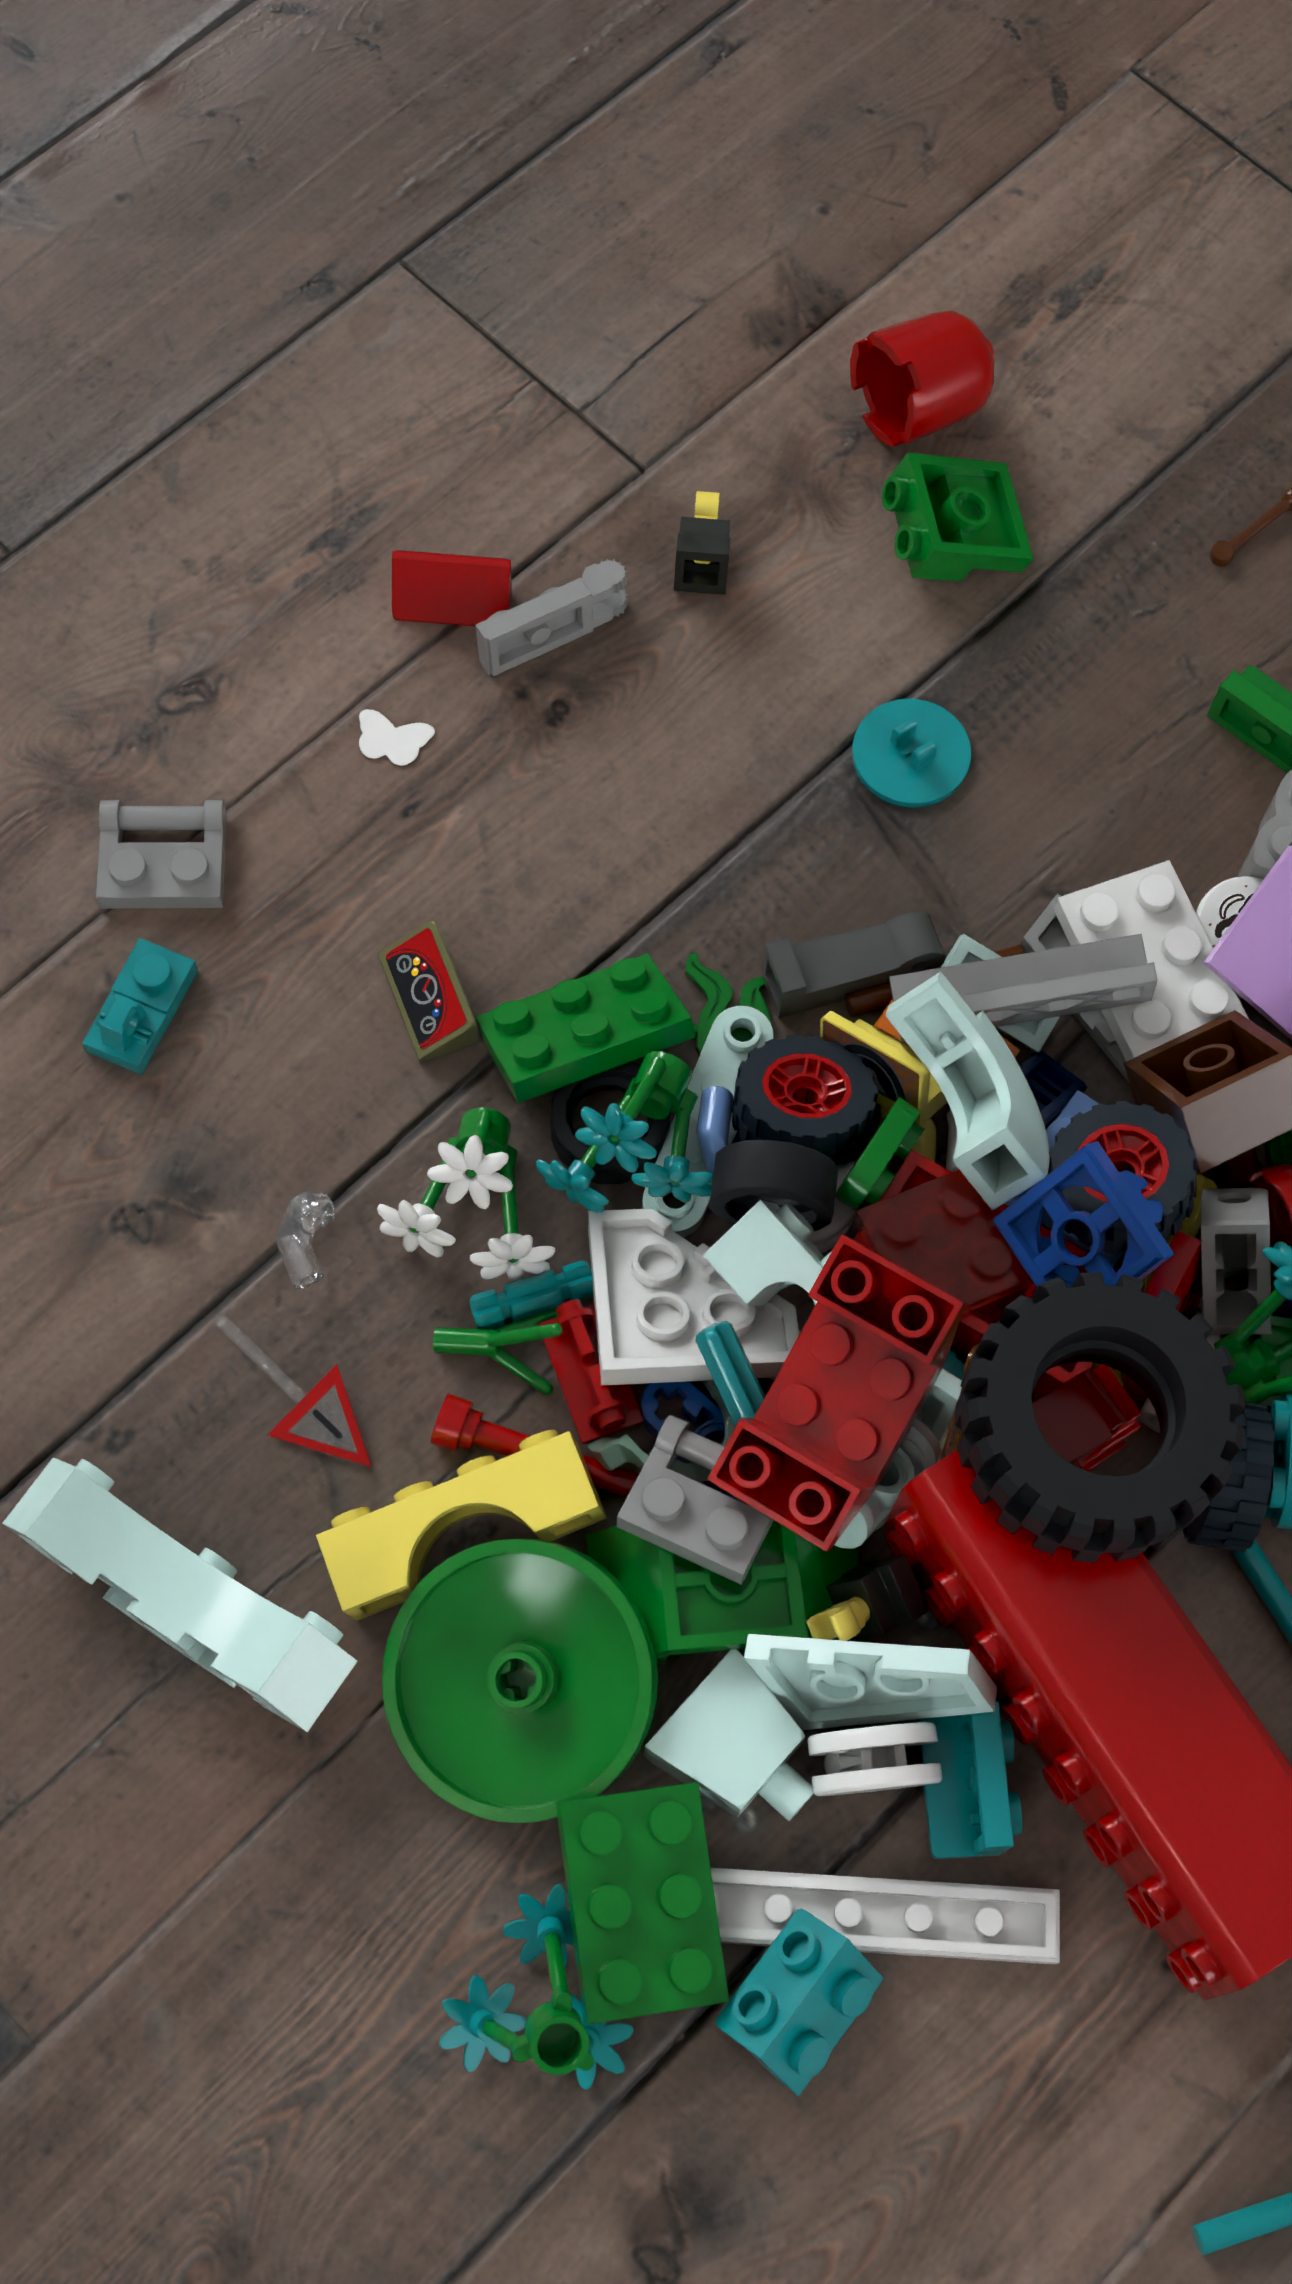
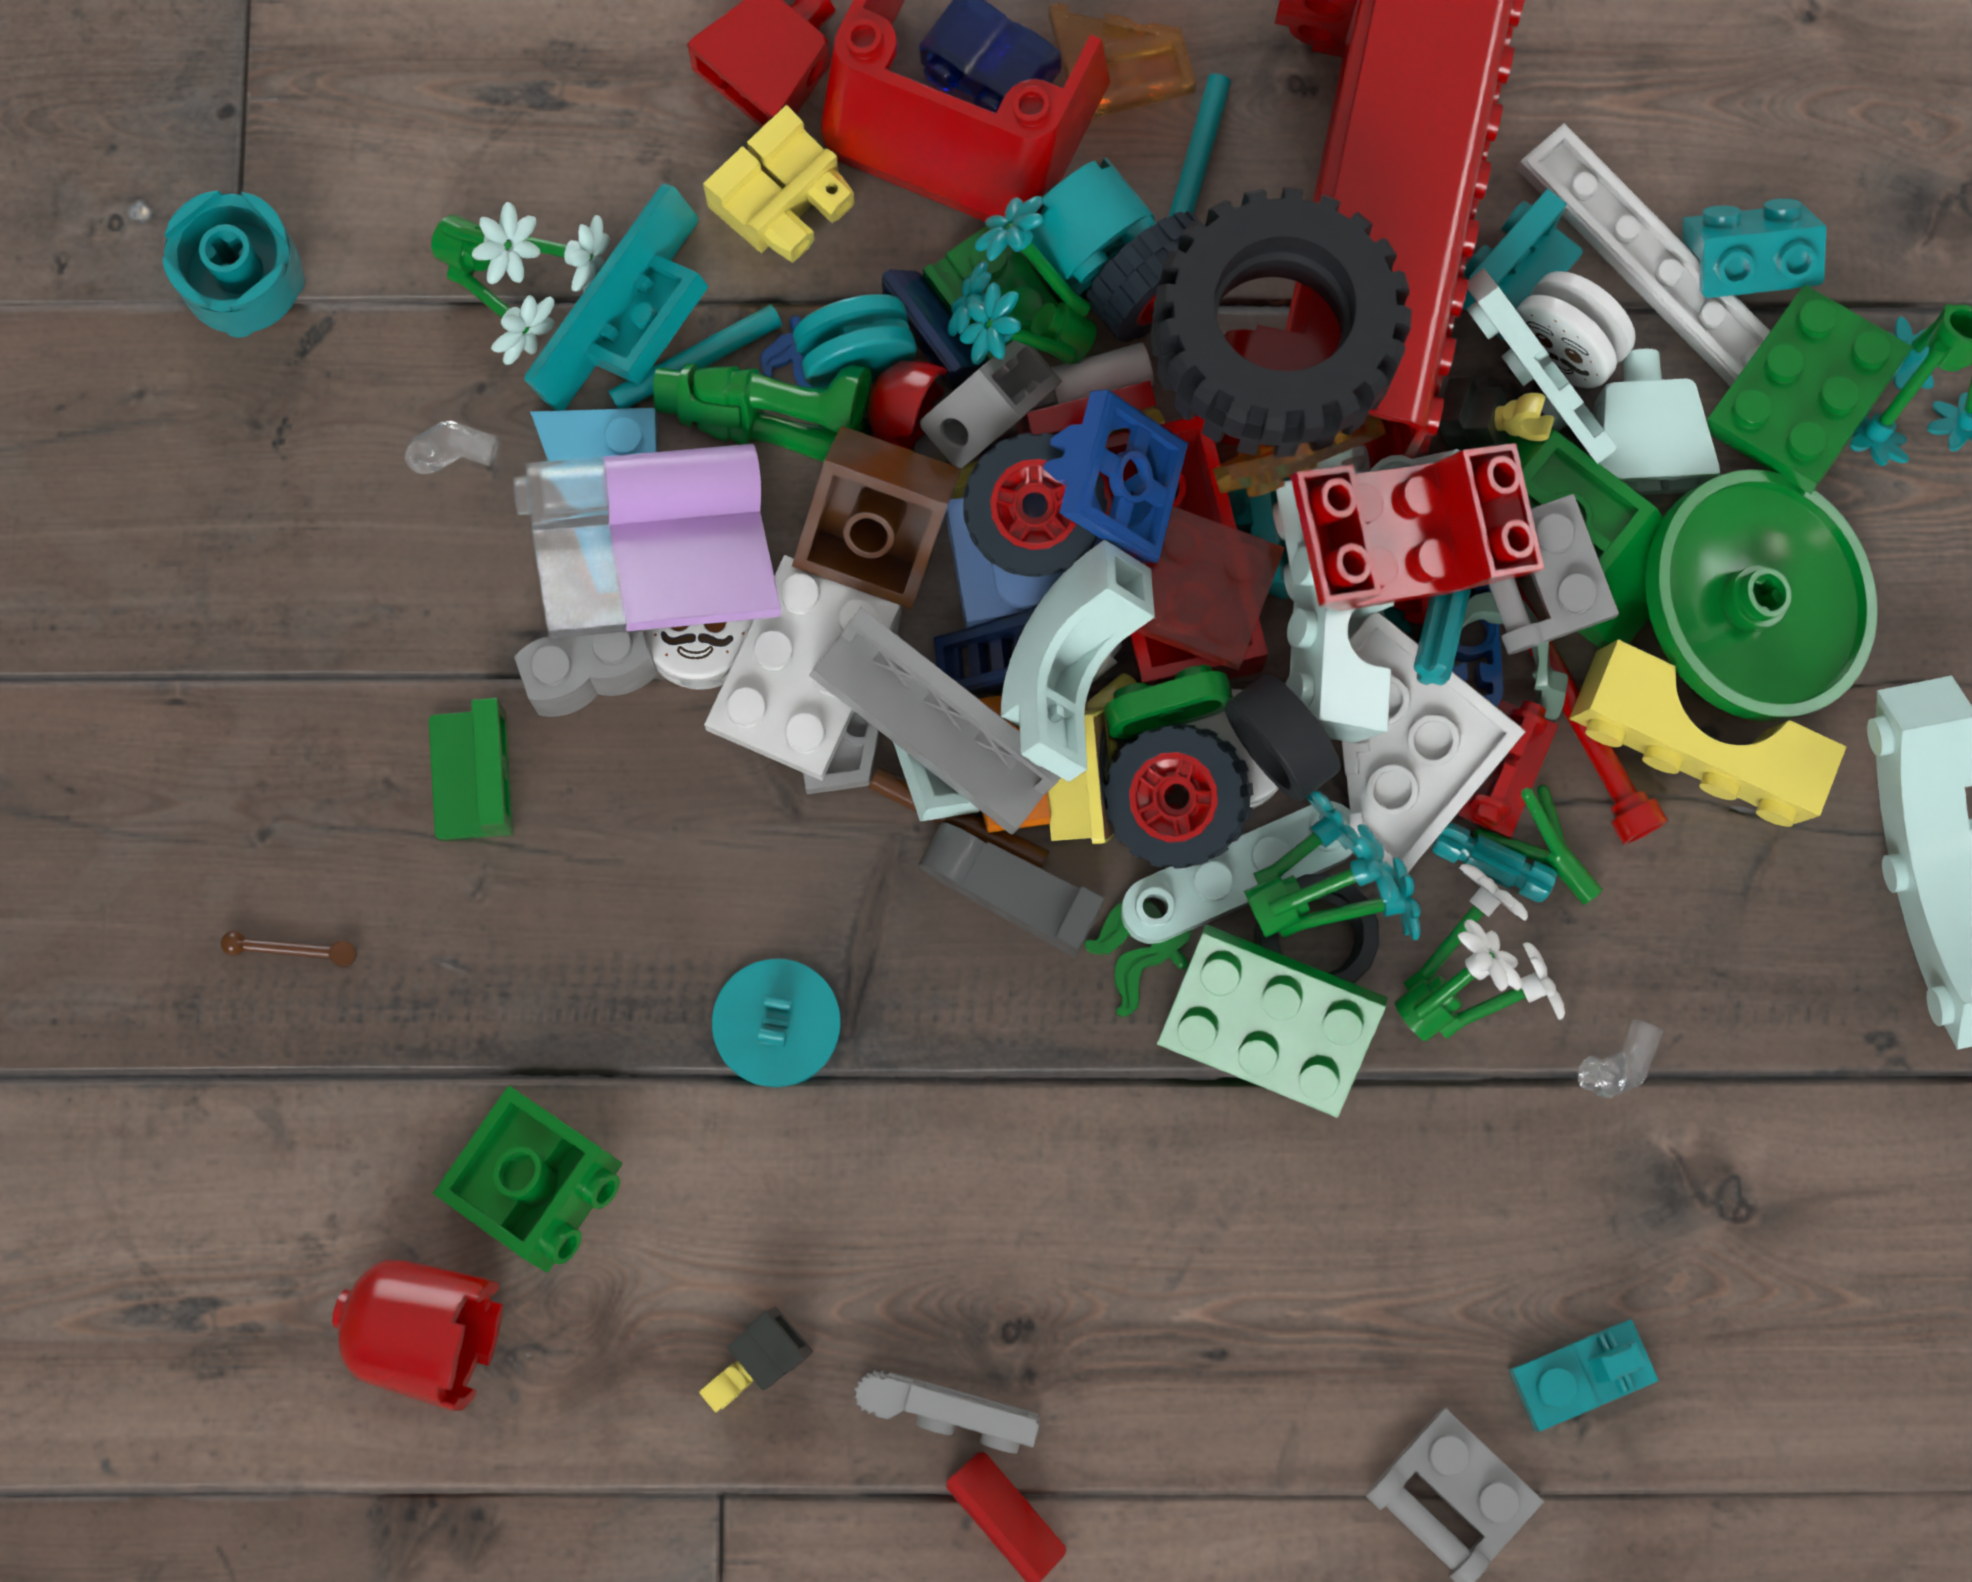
camera: 135 degrees left, 10 degrees up
(321, 1418) = (1726, 919): piece -> none
(398, 743) = (1179, 1438): white sticker -> none
(429, 993) = (1354, 1172): slope -> none
(713, 1123) = (1263, 840): medium blue arm -> none

